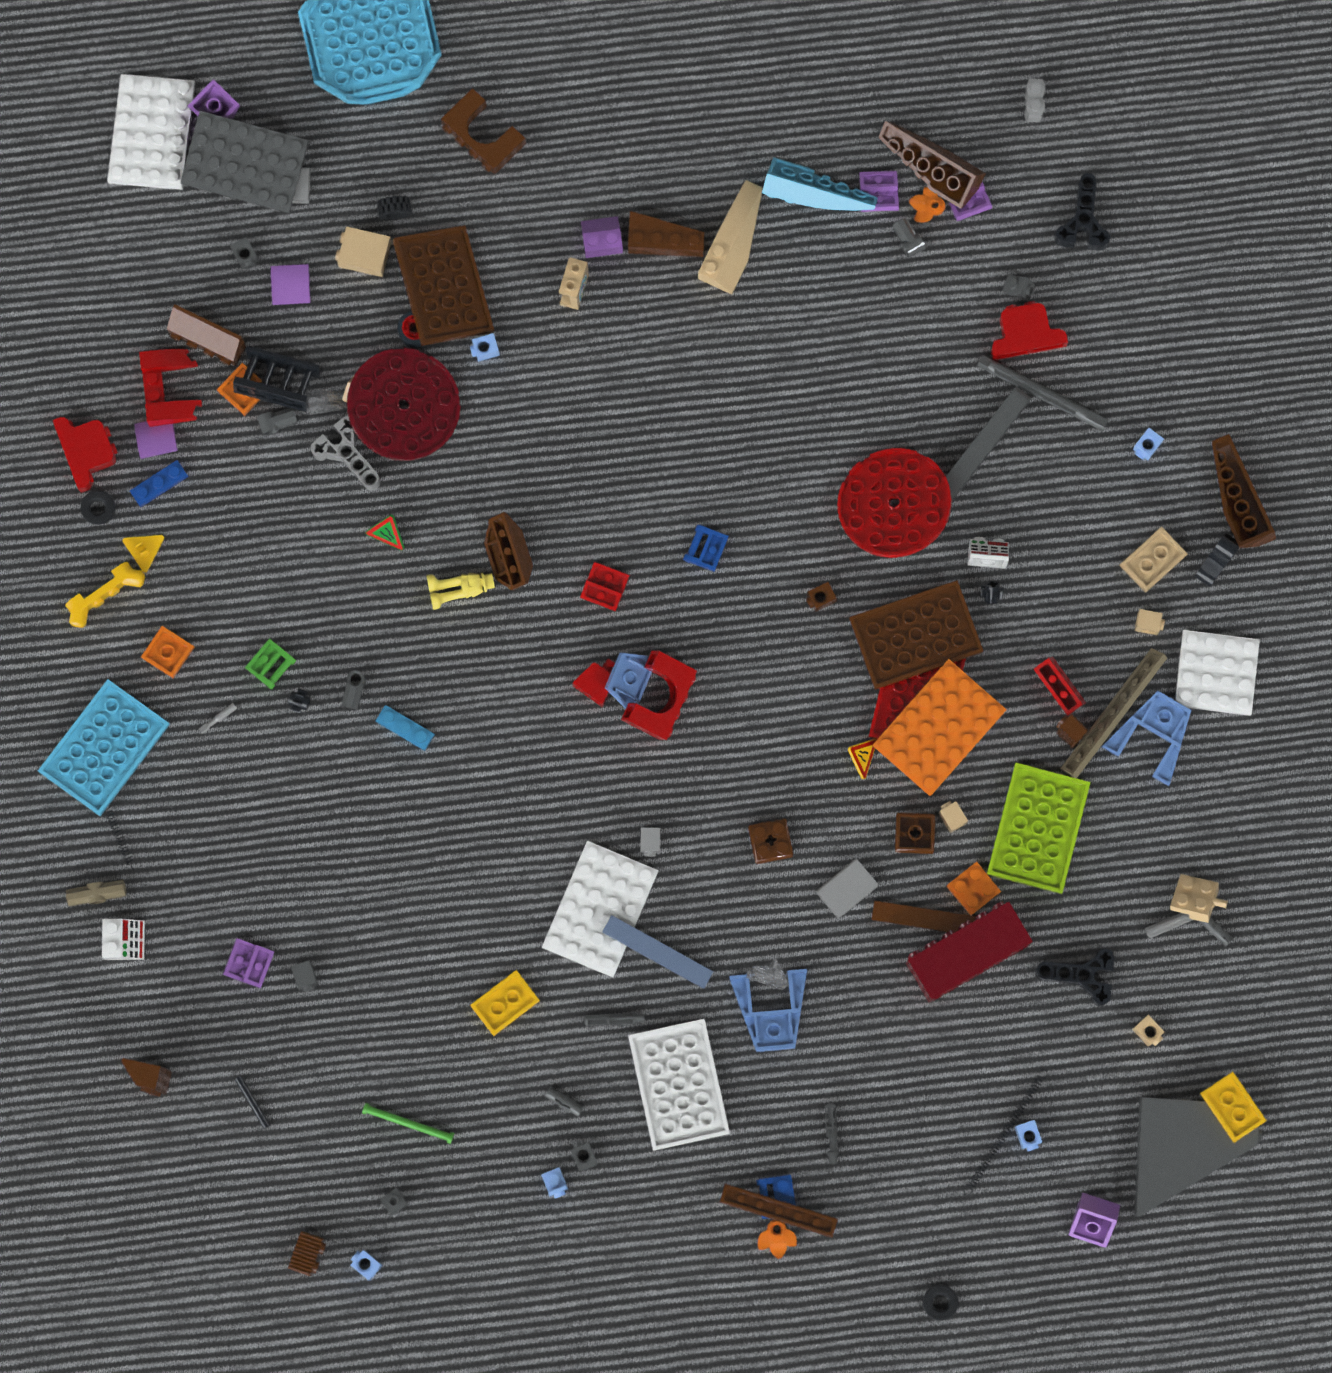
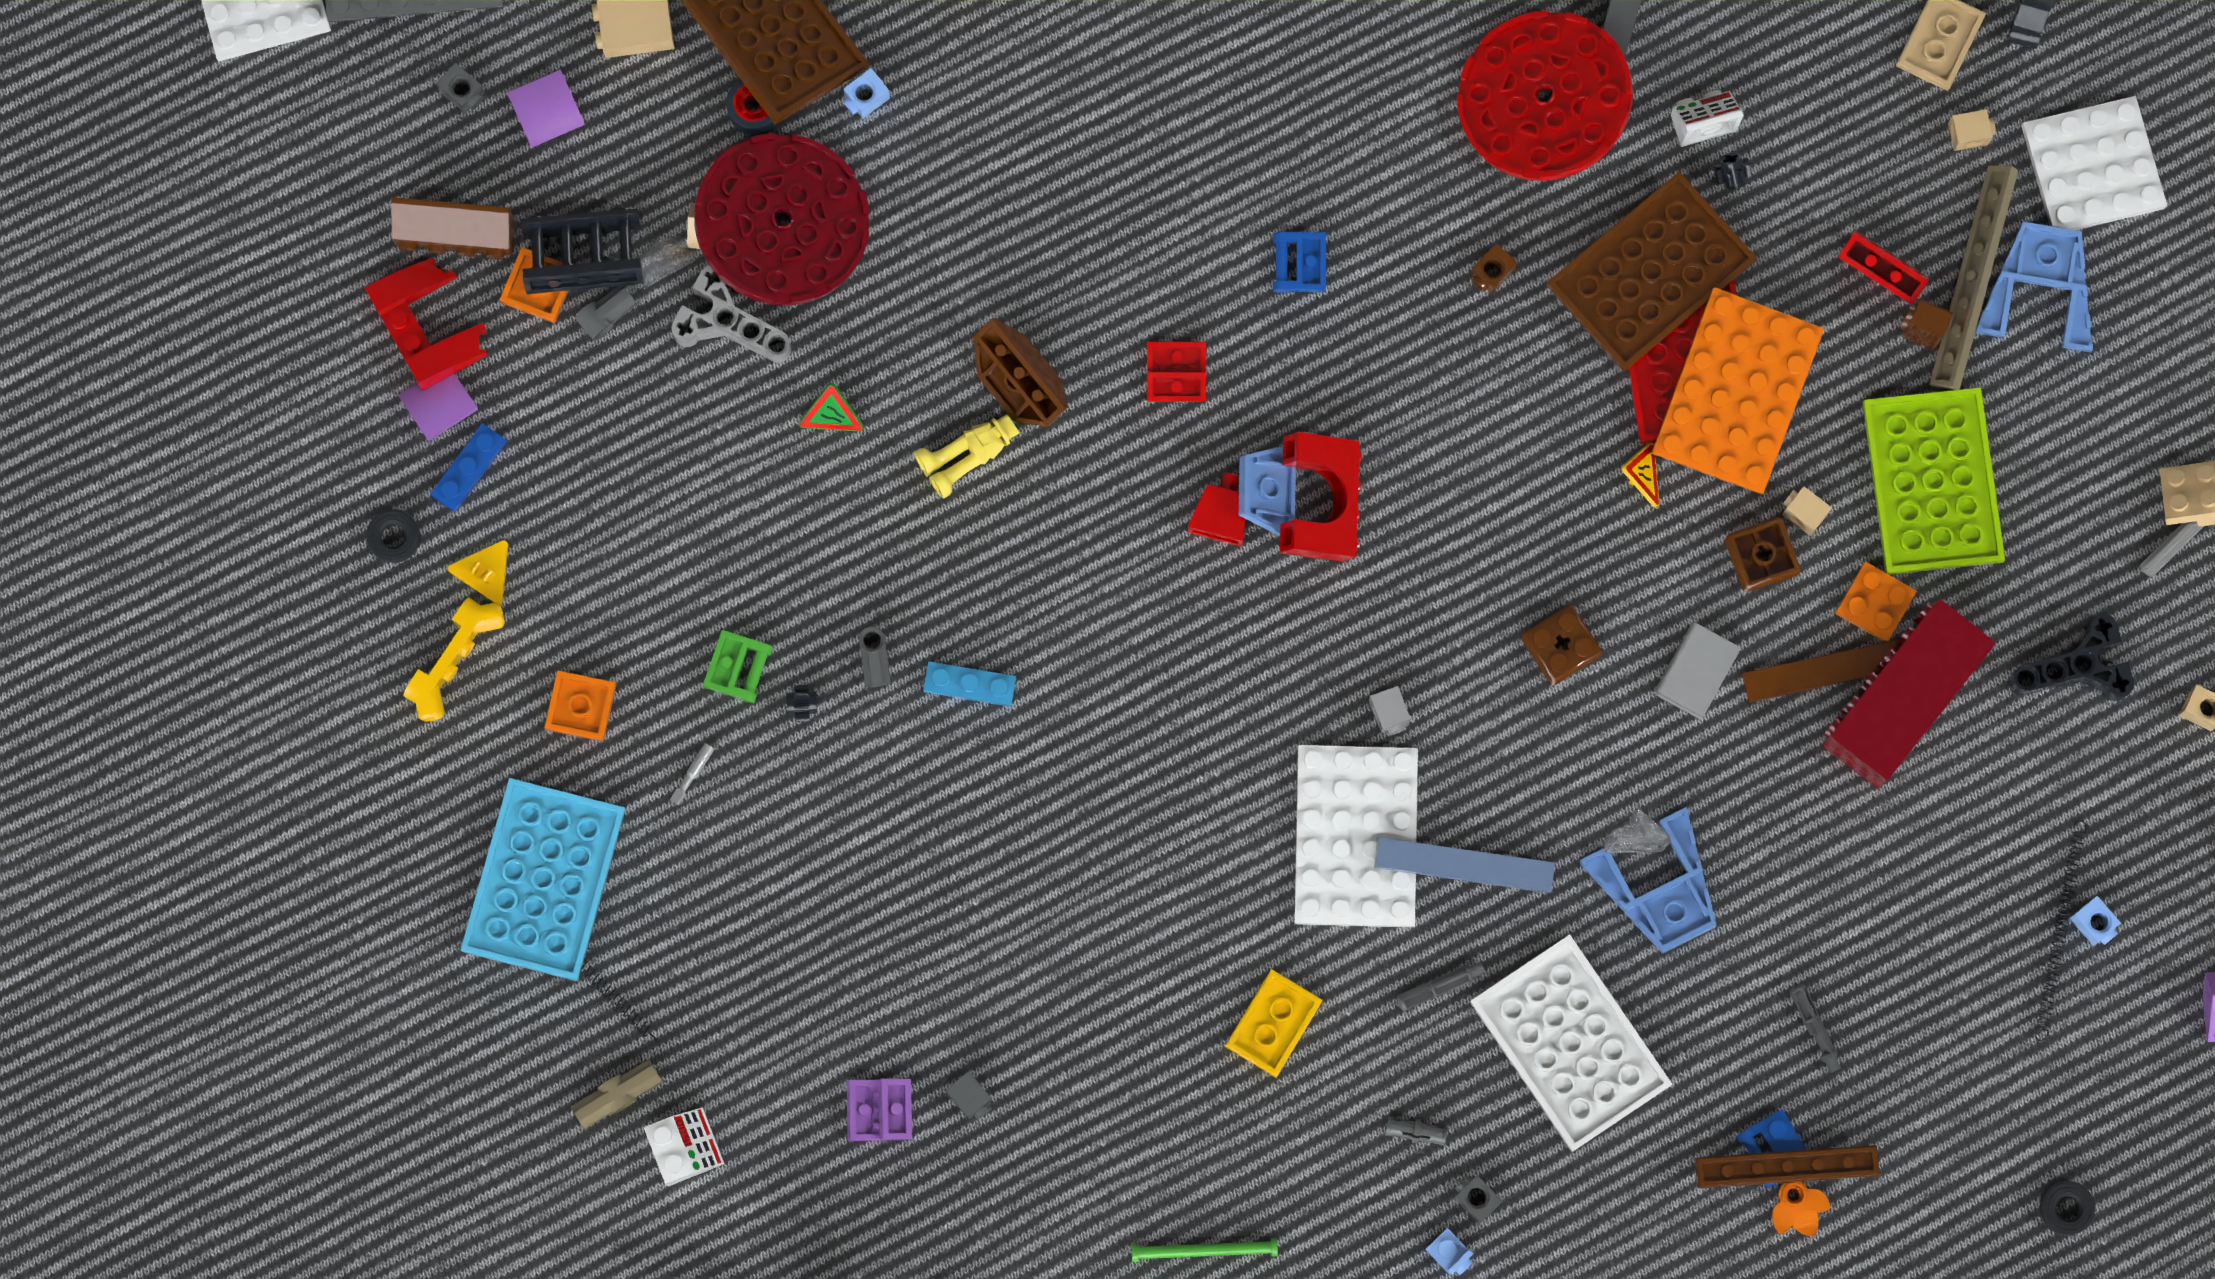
camera: 25 degrees left, 0 degrees up
(85, 449) = (342, 457): red brick -> none

